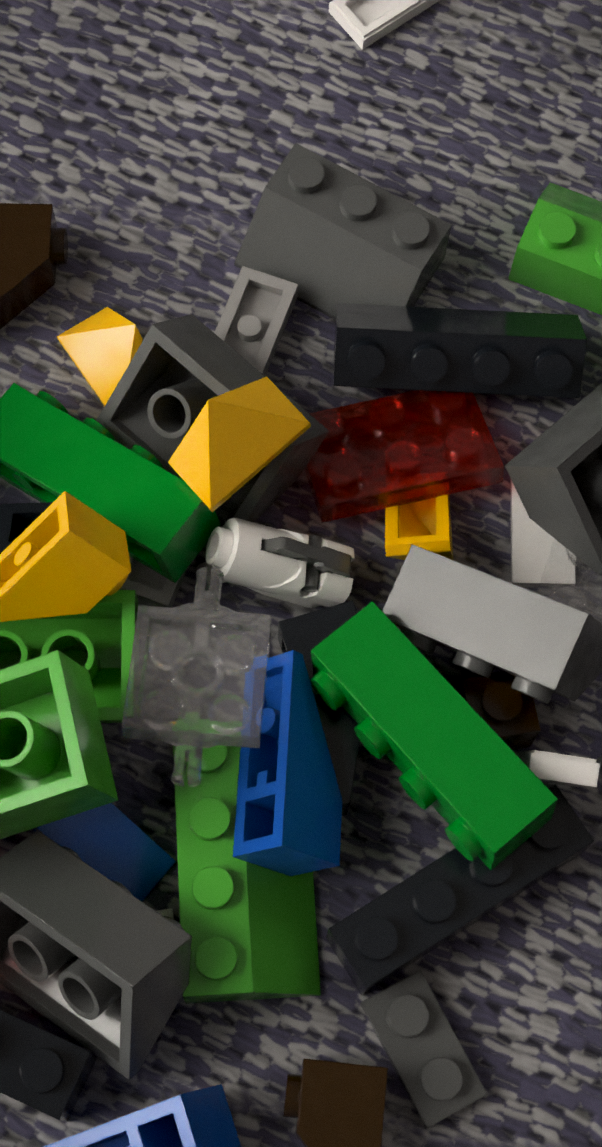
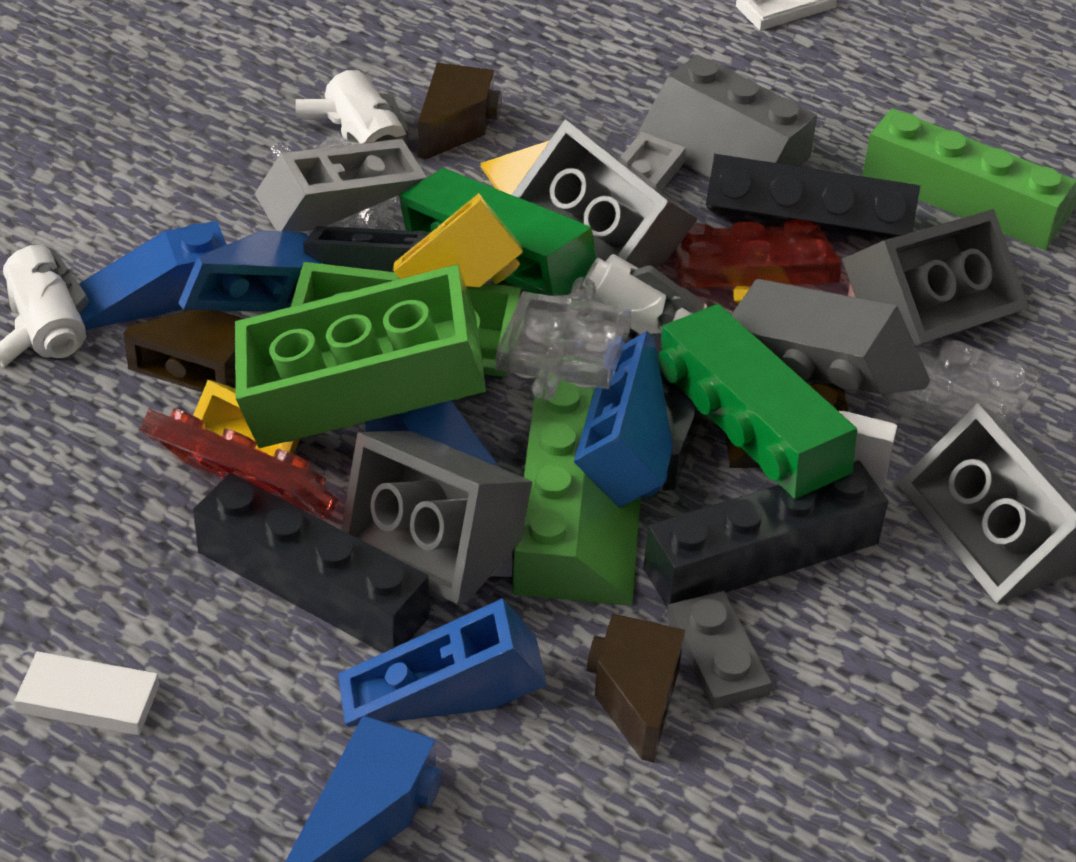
camera: 10 degrees right, 25 degrees down
(236, 440) = (619, 185): yellow slope -> none

